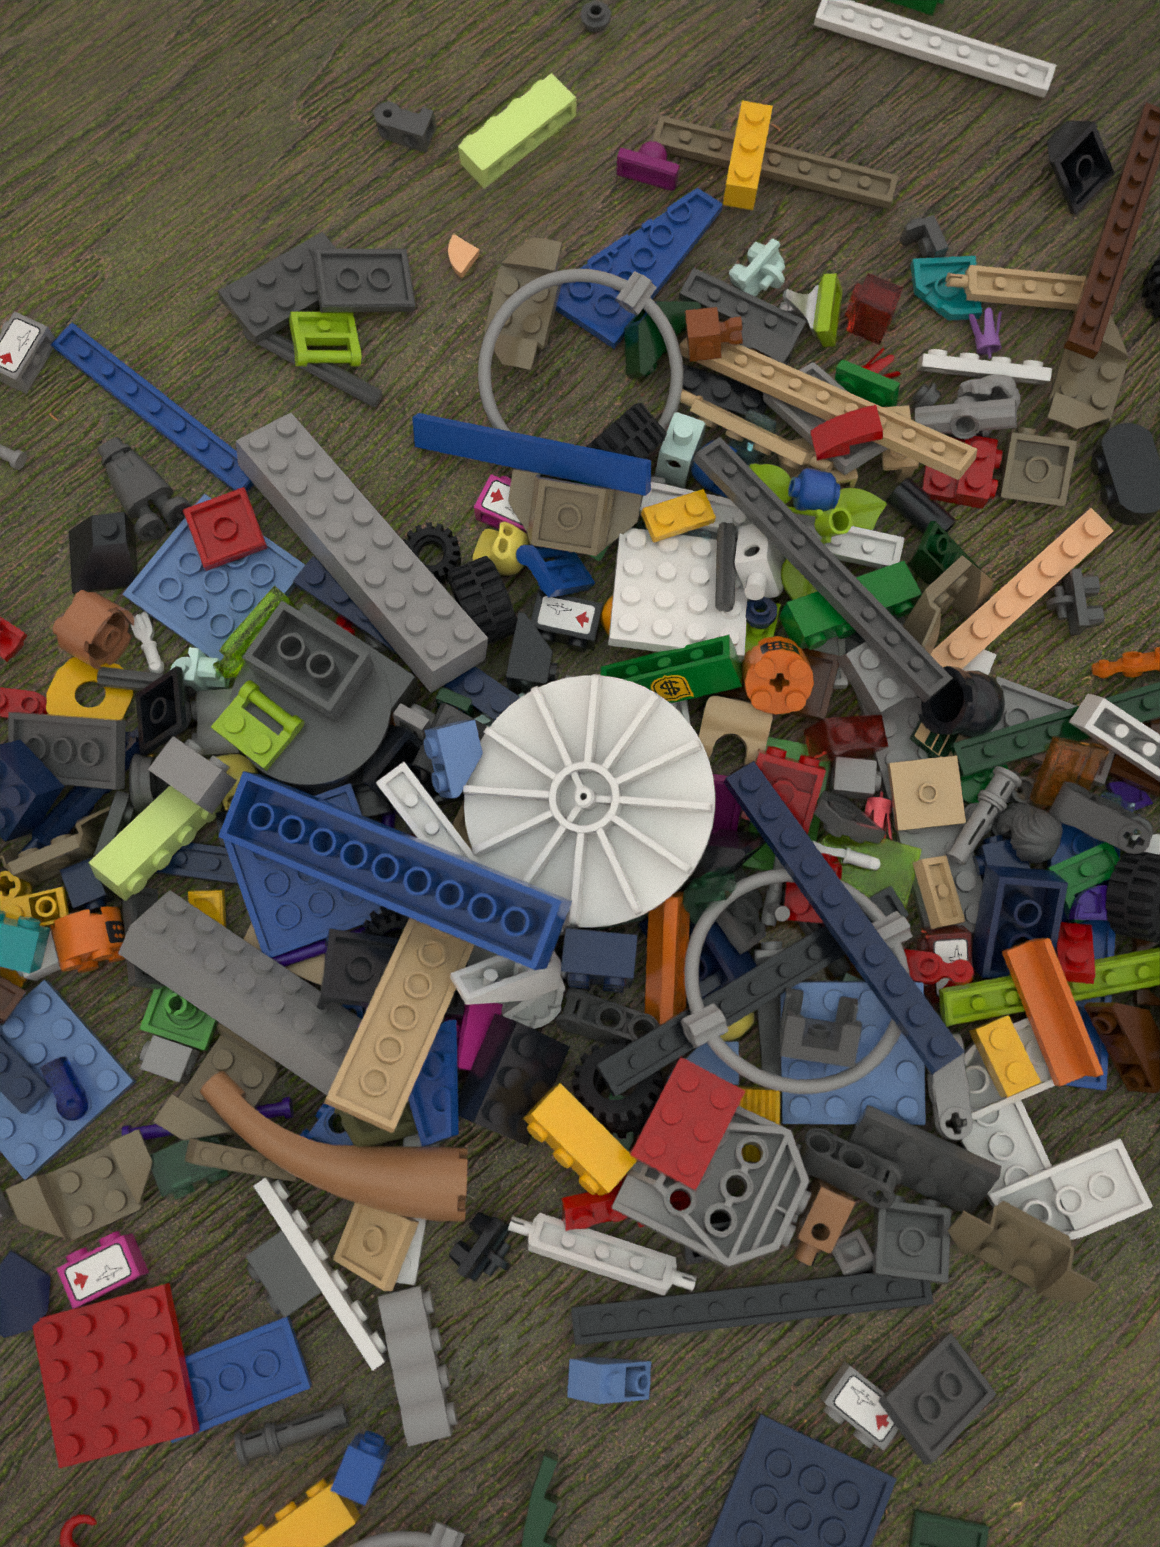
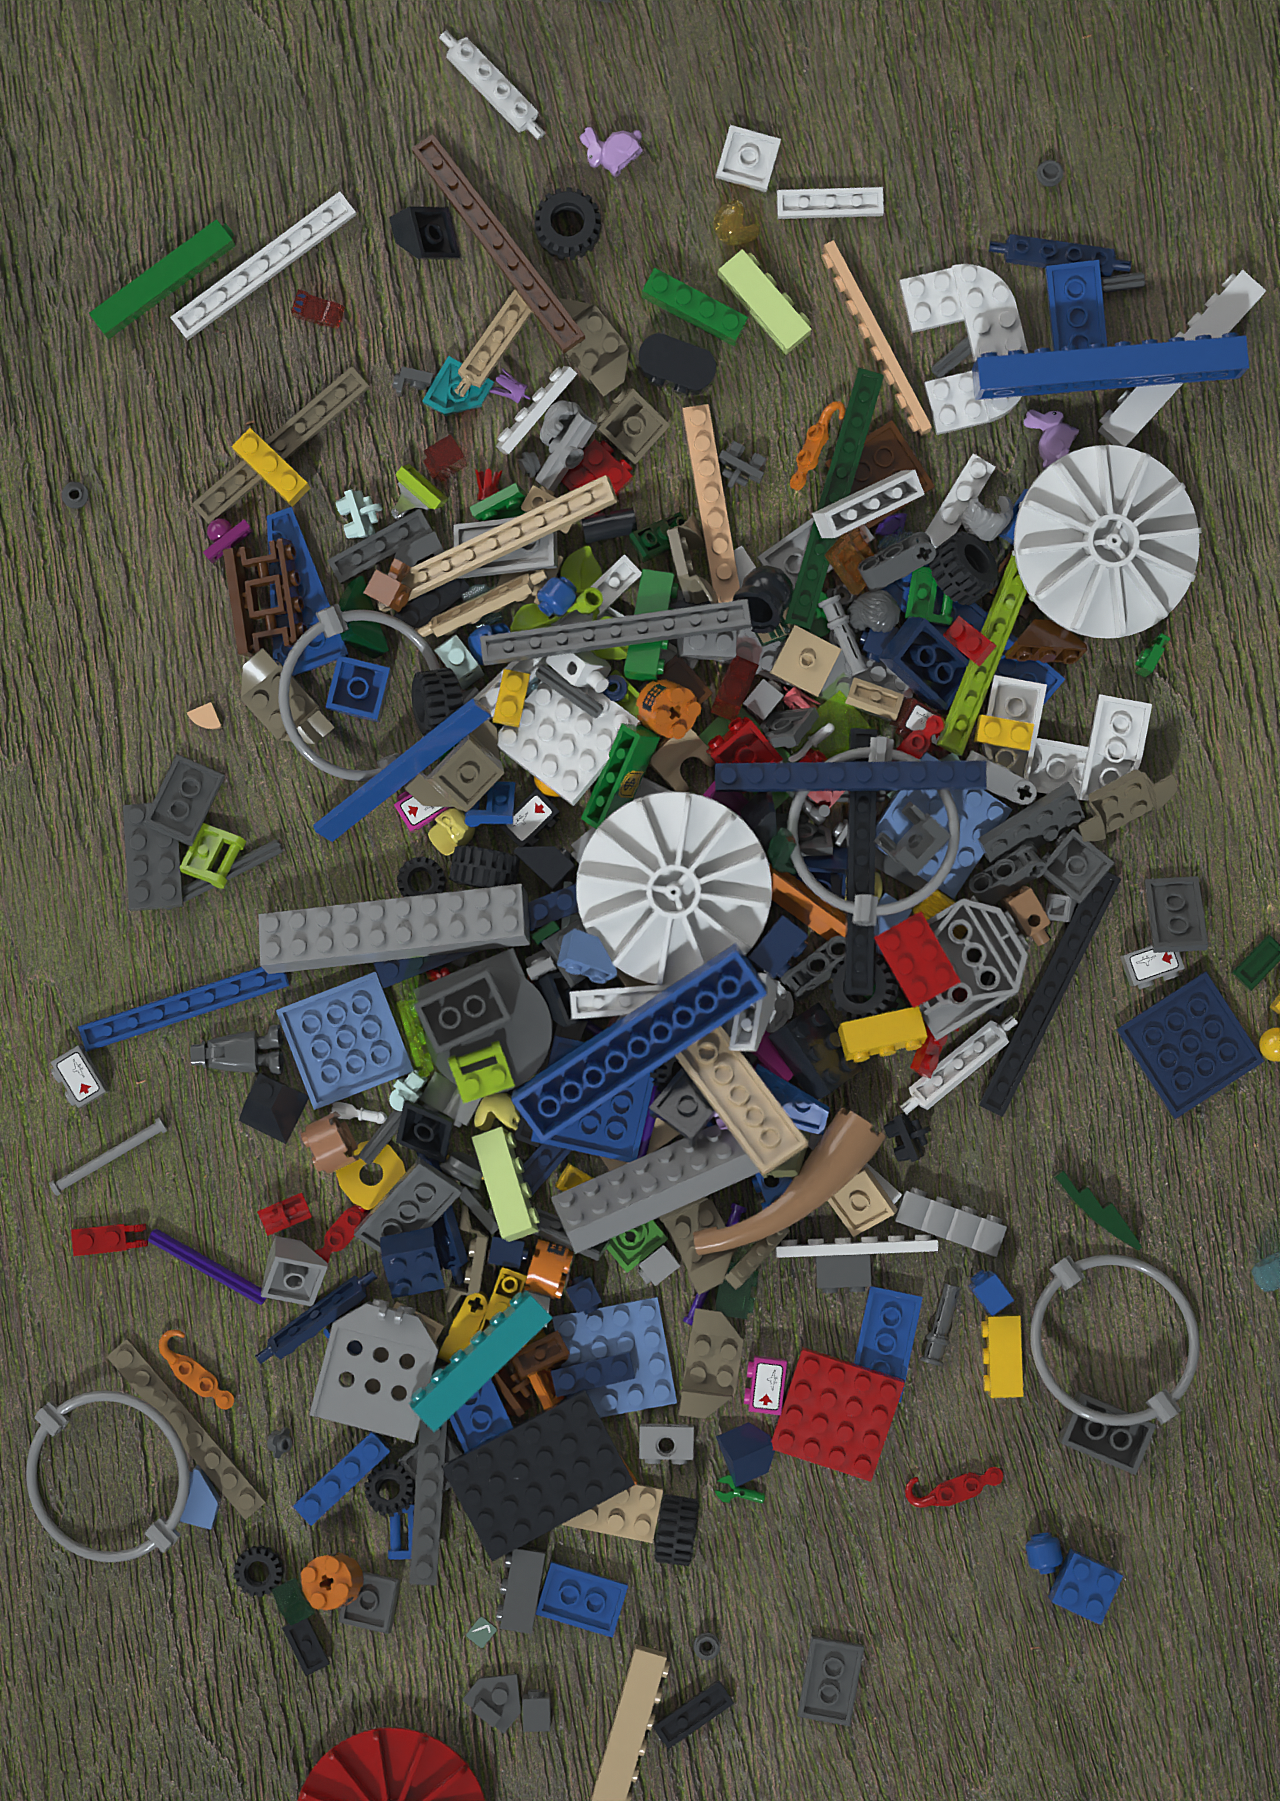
camera: 60 degrees left, 10 degrees up
(66, 1088) = (637, 1341): clear blue piece -> none
(87, 997) = (584, 1294): none -> dark blue brick
(192, 774) = (485, 1135): light grey brick -> none
(225, 529) = (313, 1011): red tile -> none
(405, 126) = (77, 694): dark grey leg -> none
(517, 130) = (134, 614): yellowish green brick -> none
(586, 371) = (359, 689): none -> blue brick
(607, 211) = (245, 599): none -> reddish brown fence
(608, 1380) = (1036, 1109): medium blue slope -> none
(851, 428) = (531, 549): red slope -> none
(927, 113) = (317, 310): none -> clear red leg
(1052, 1011) = (995, 685): orange panel -> none
(1090, 904) = (946, 609): dark purple tile -> none

